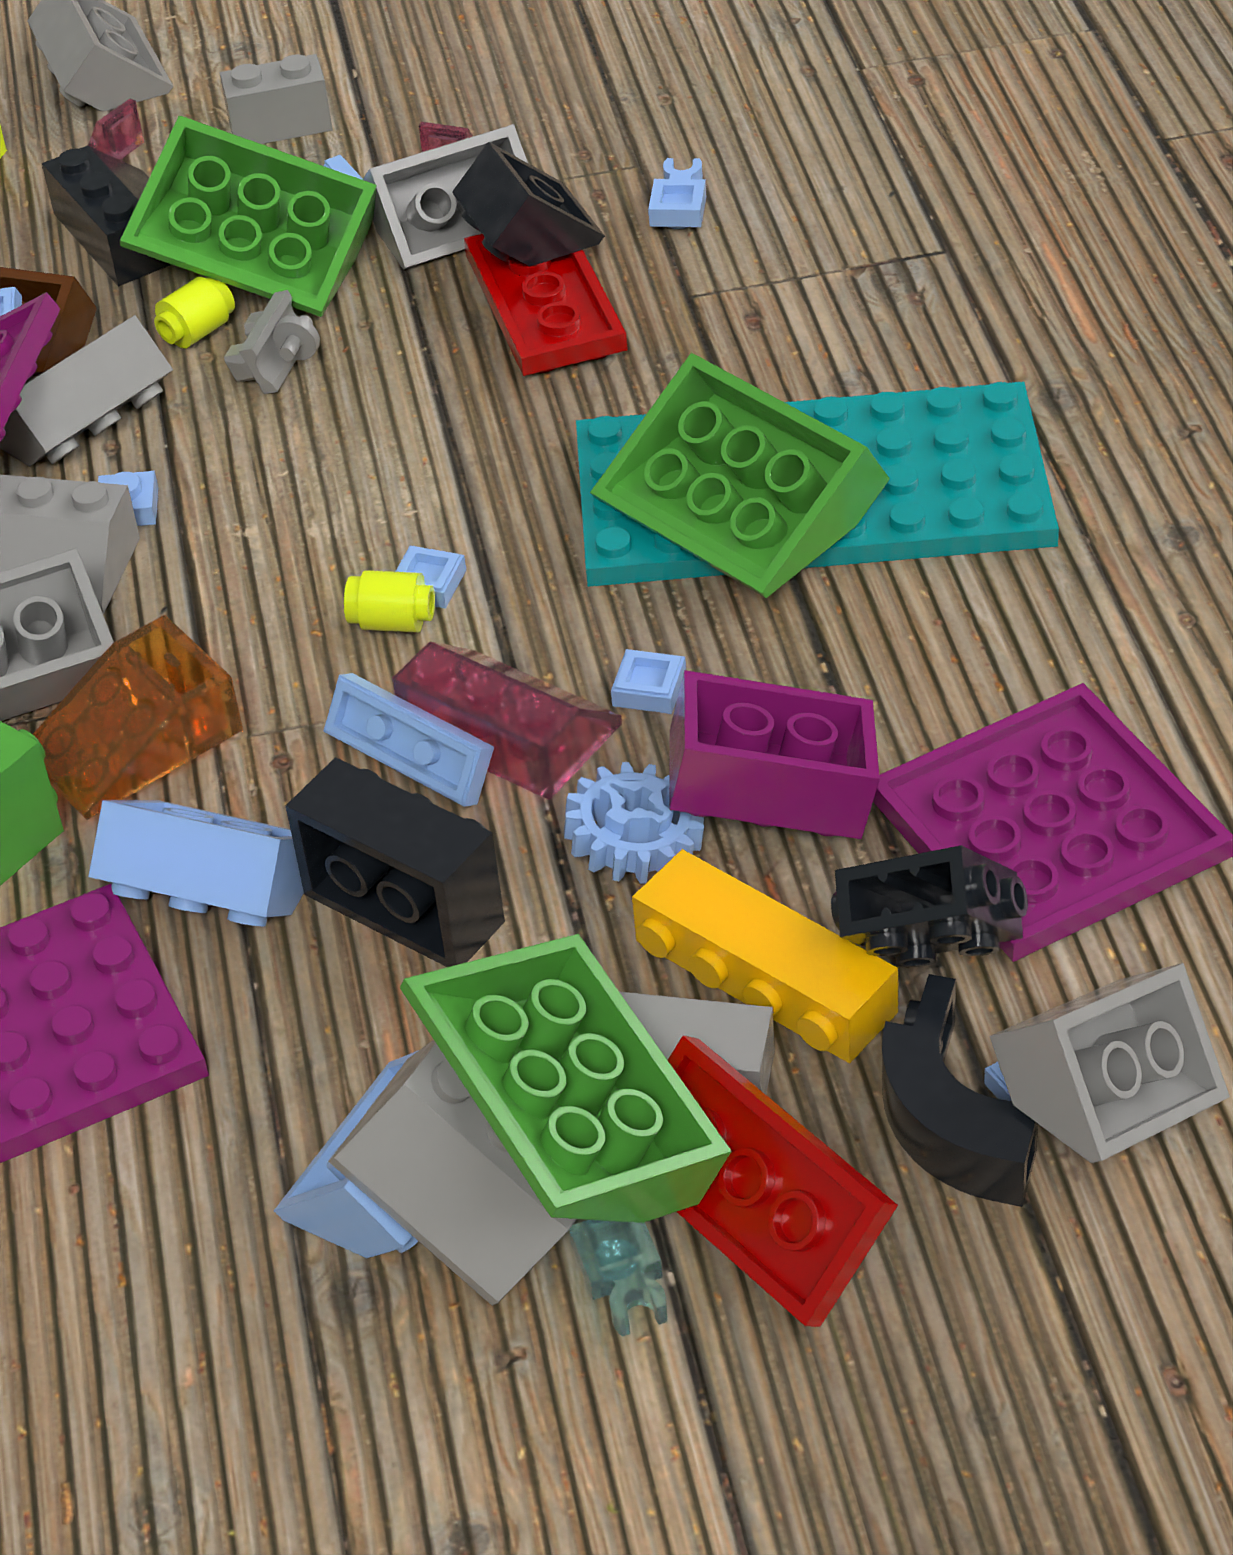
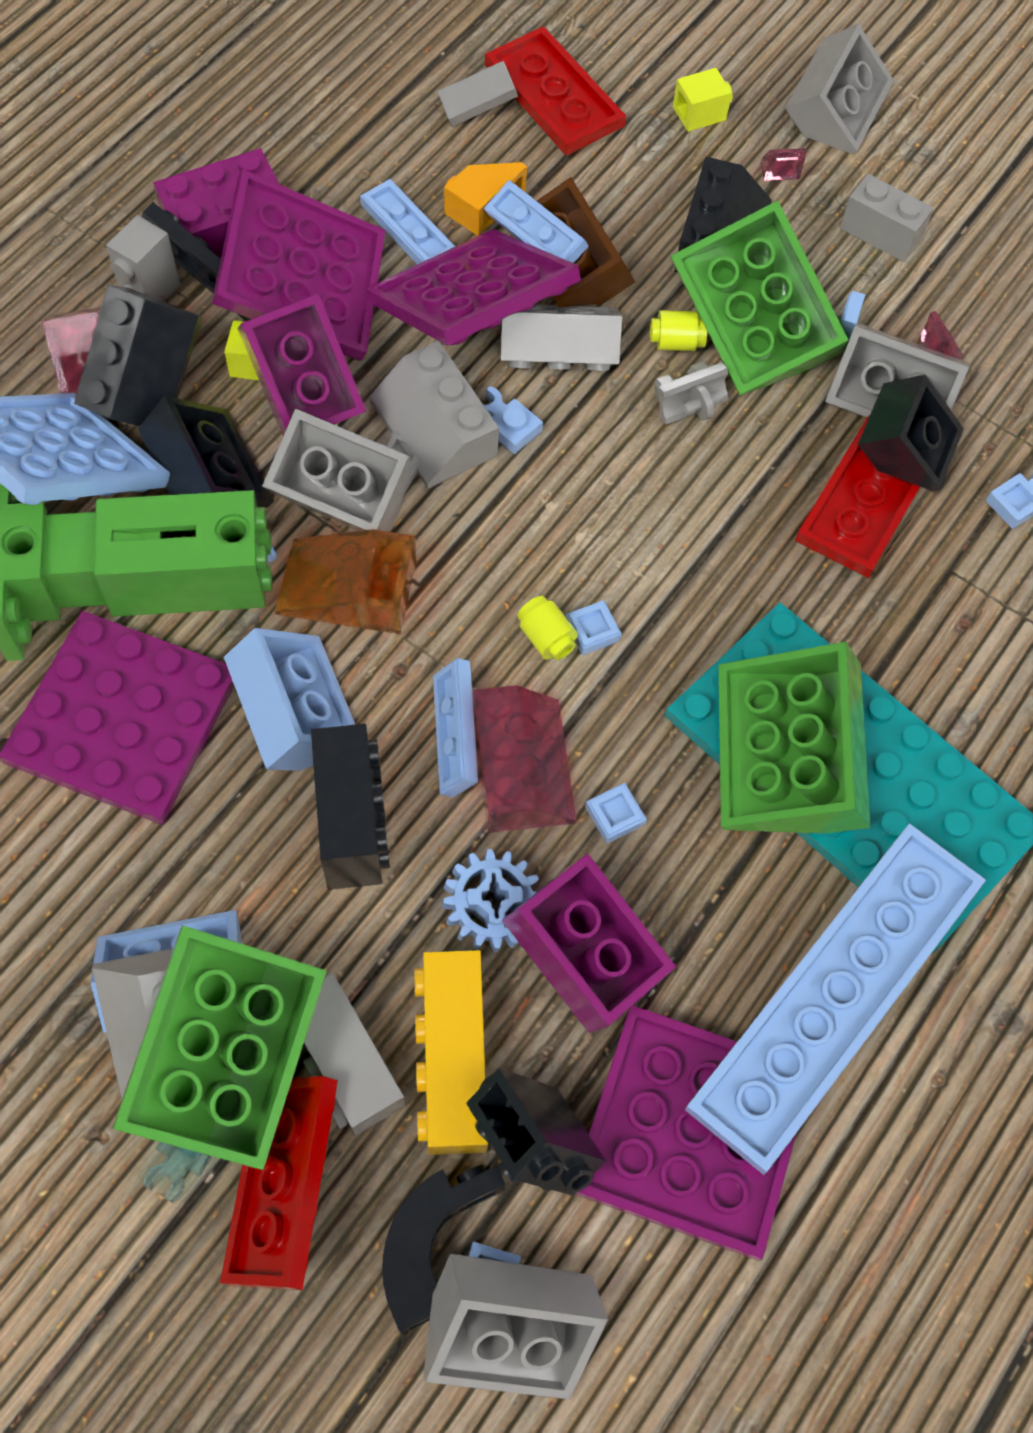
camera: 40 degrees right, 20 degrees up
(1033, 617) = (834, 999): none -> light blue plate

